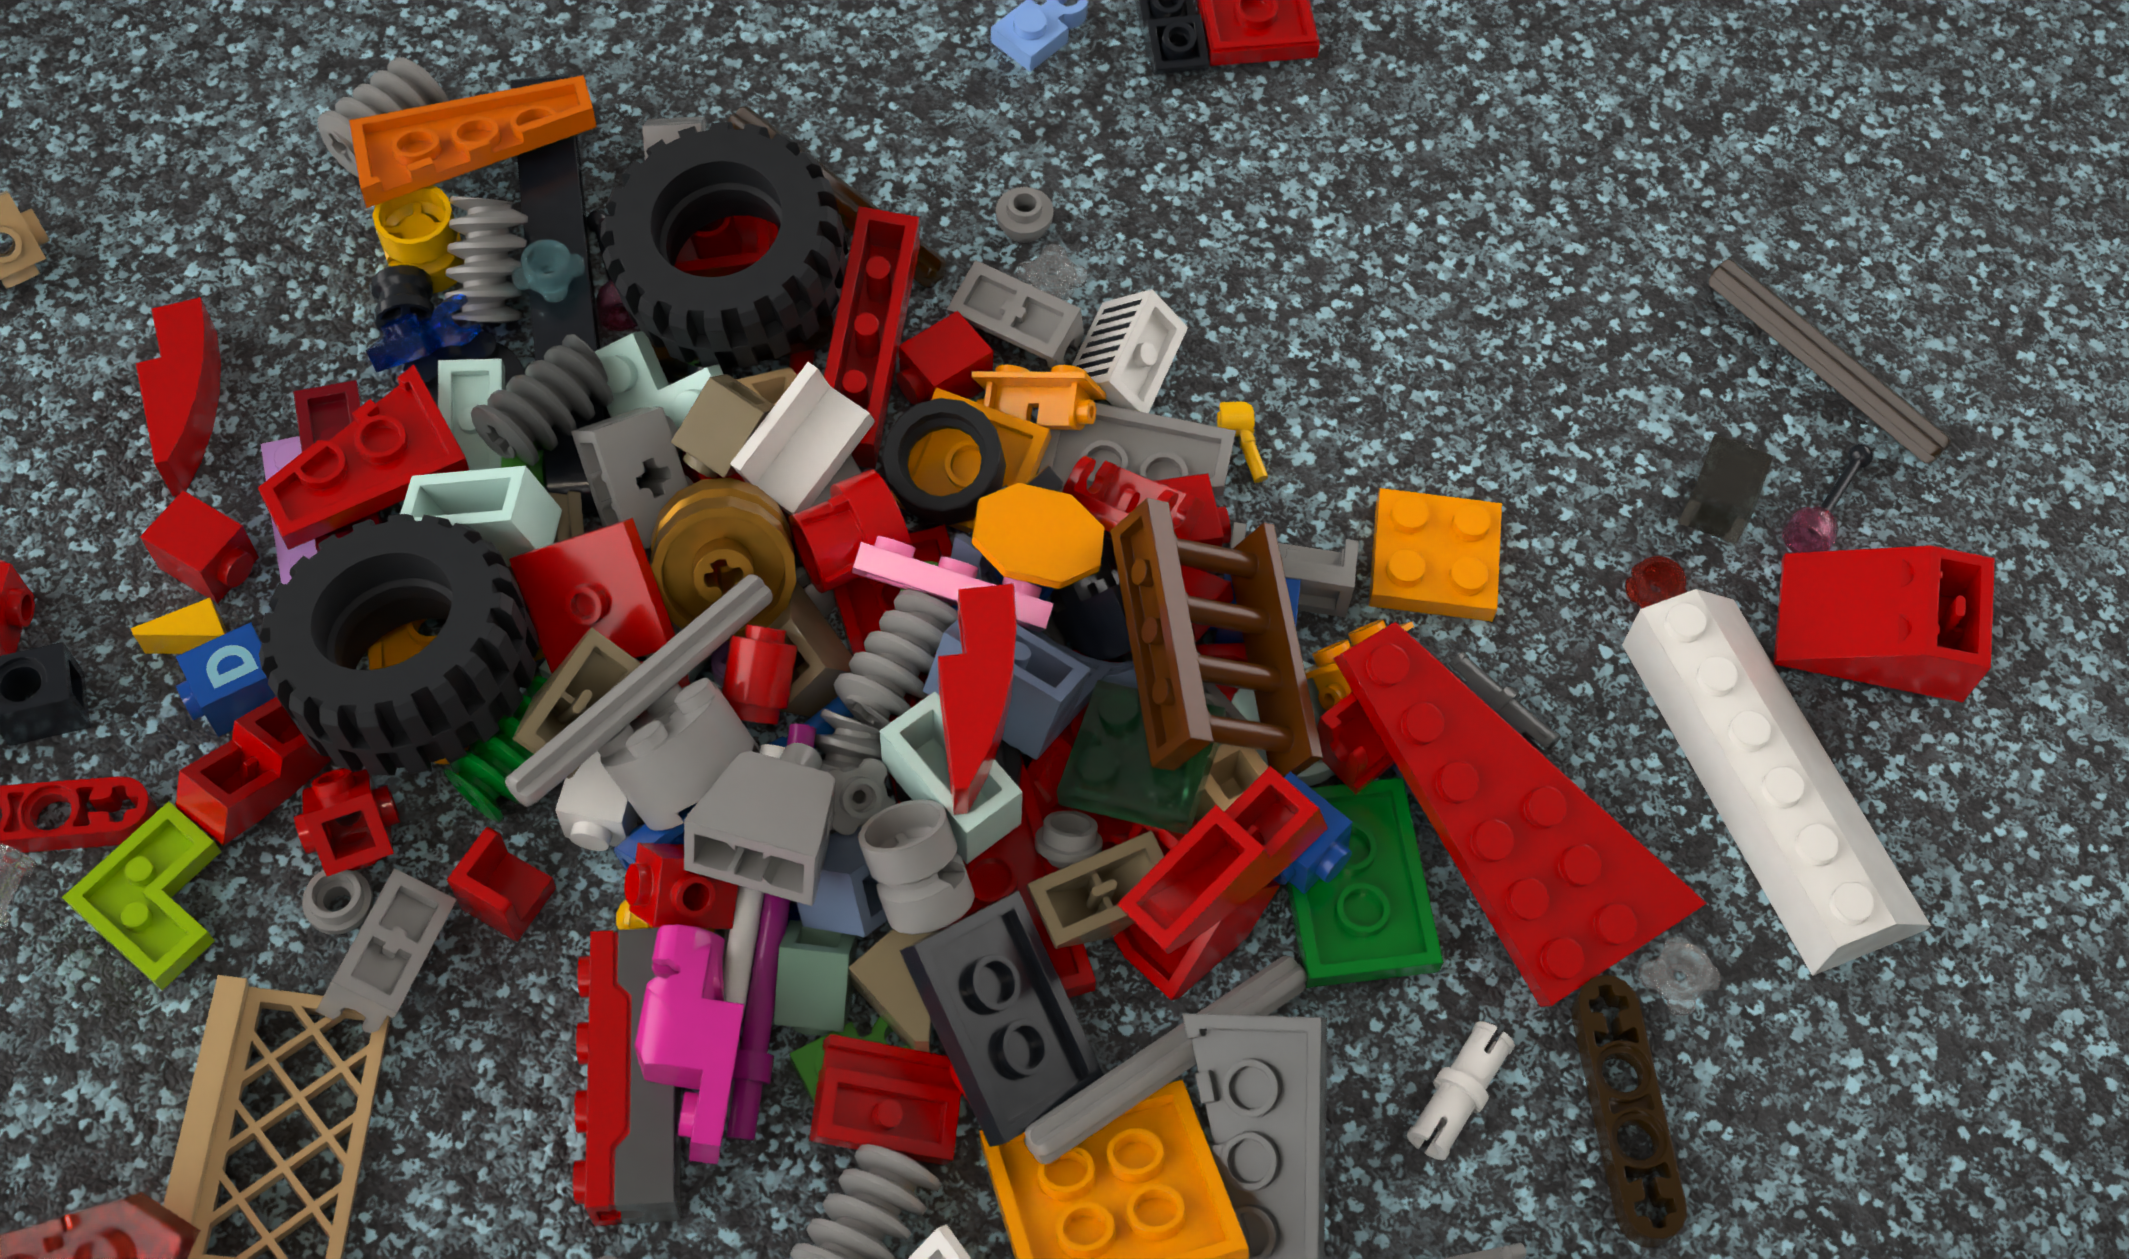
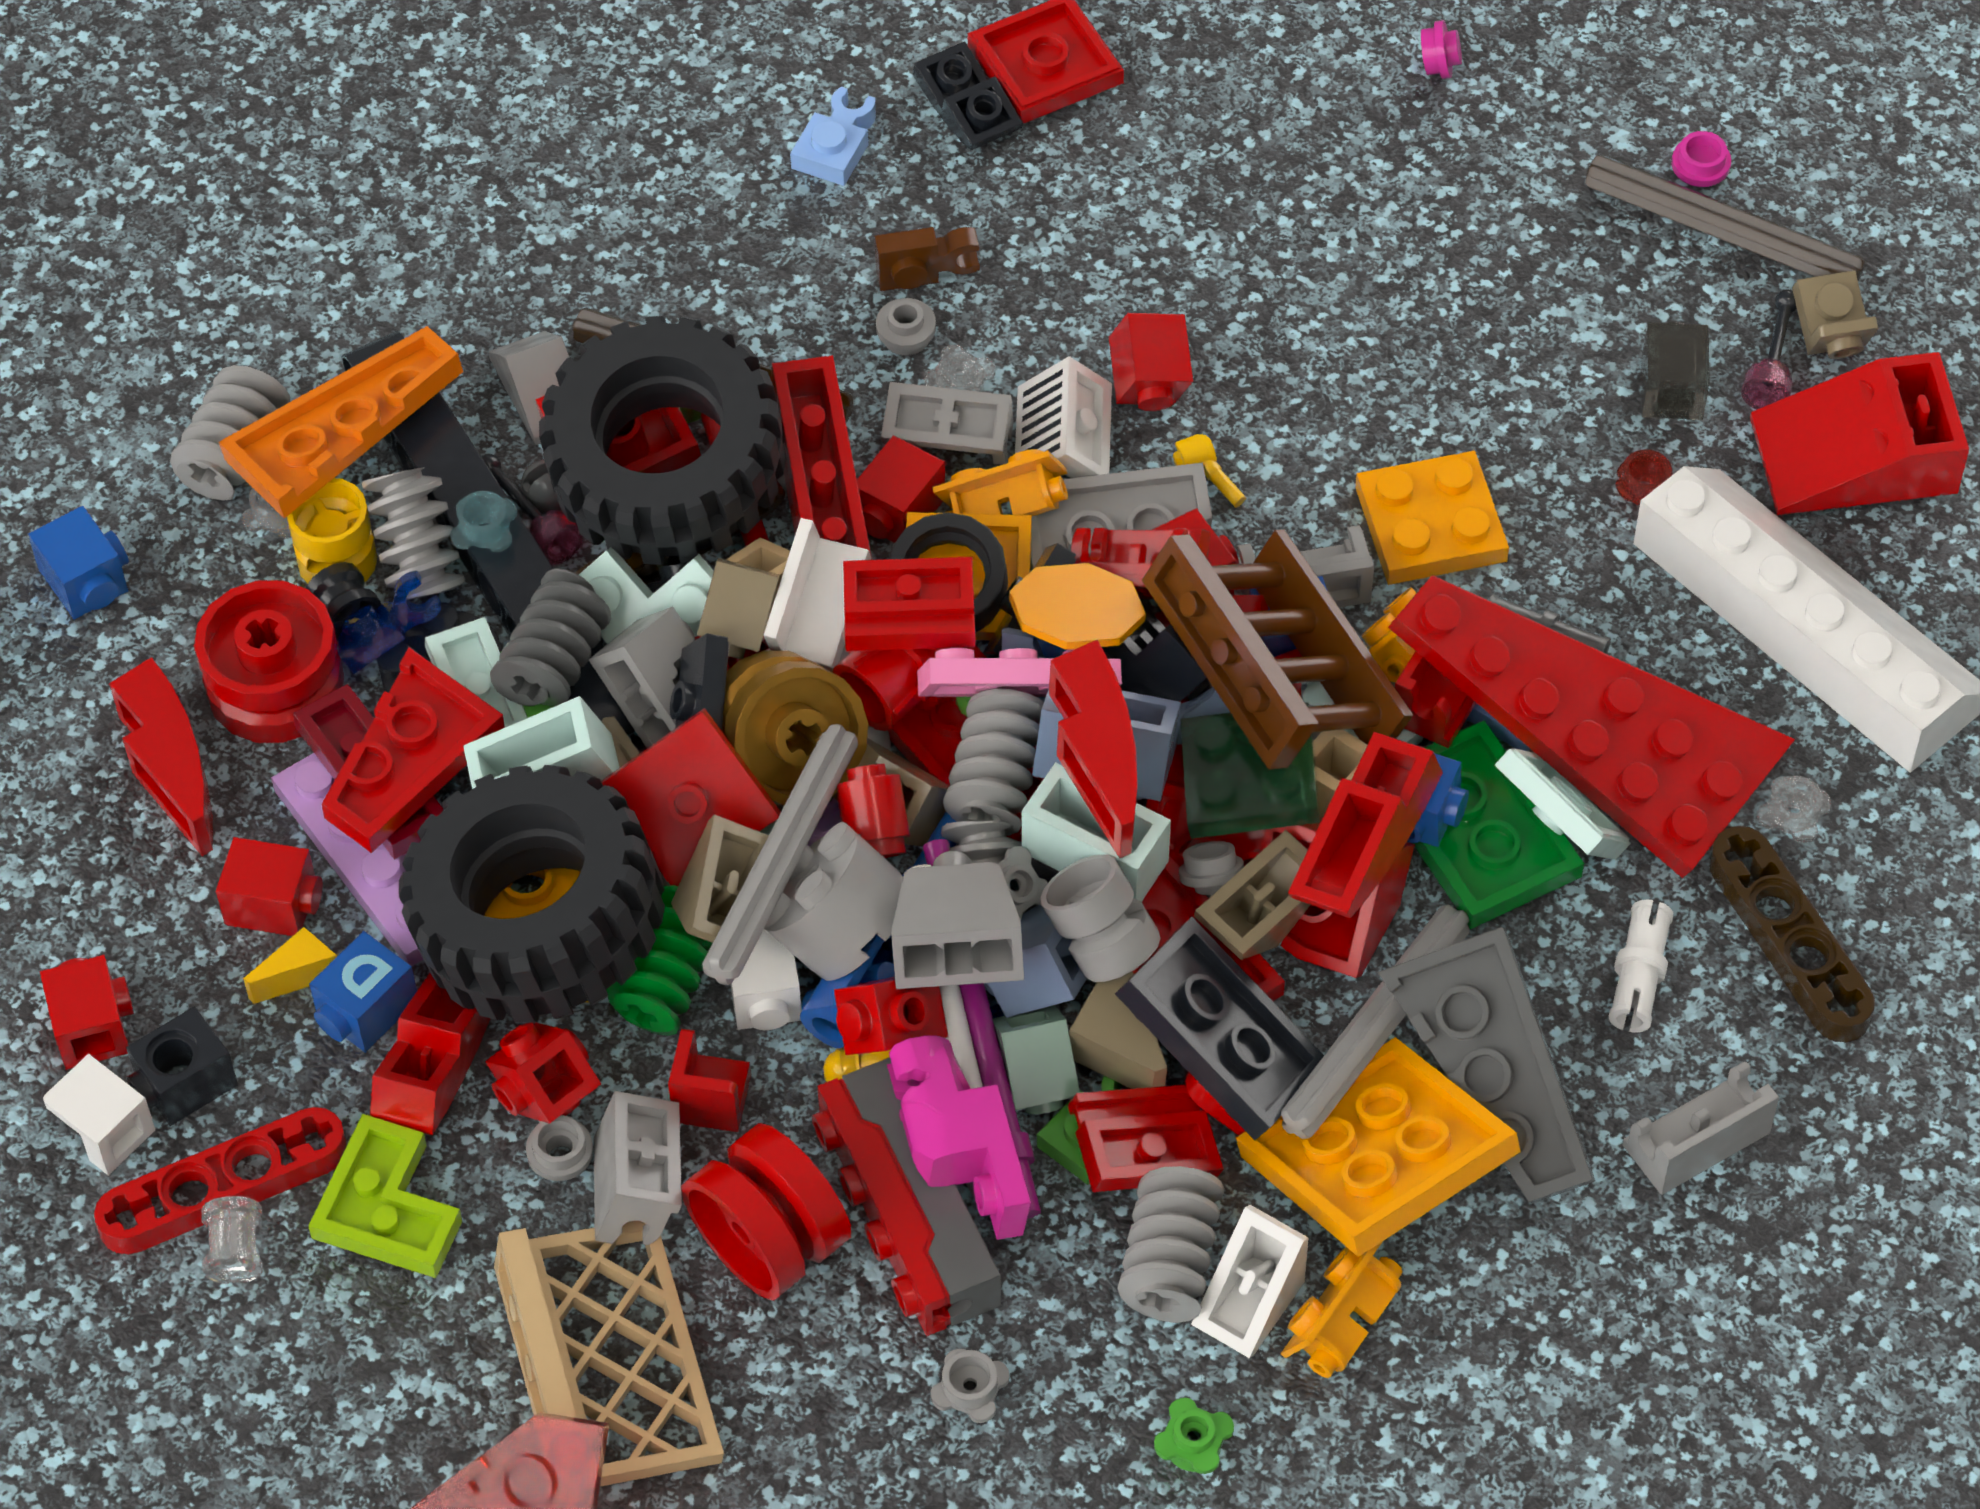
camera: 15 degrees left, 5 degrees down
(197, 190) = (80, 562): none -> blue brick
(303, 328) = (265, 657): none -> red wheel
(466, 1052) = (766, 1211): none -> red wheel
(652, 498) = (701, 679): none -> black plate
(871, 480) = (909, 604): none -> red plate
(1060, 156) = (917, 256): none -> reddish brown plate
(1228, 317) = (1150, 360): none -> red brick
(1442, 898) = (1563, 805): none -> light aqua plate
(1618, 116) = (1440, 49): none -> dark pink plate
(1827, 294) = (1701, 159): none -> dark pink plate
(1901, 484) = (1833, 315): none -> dark tan bracket

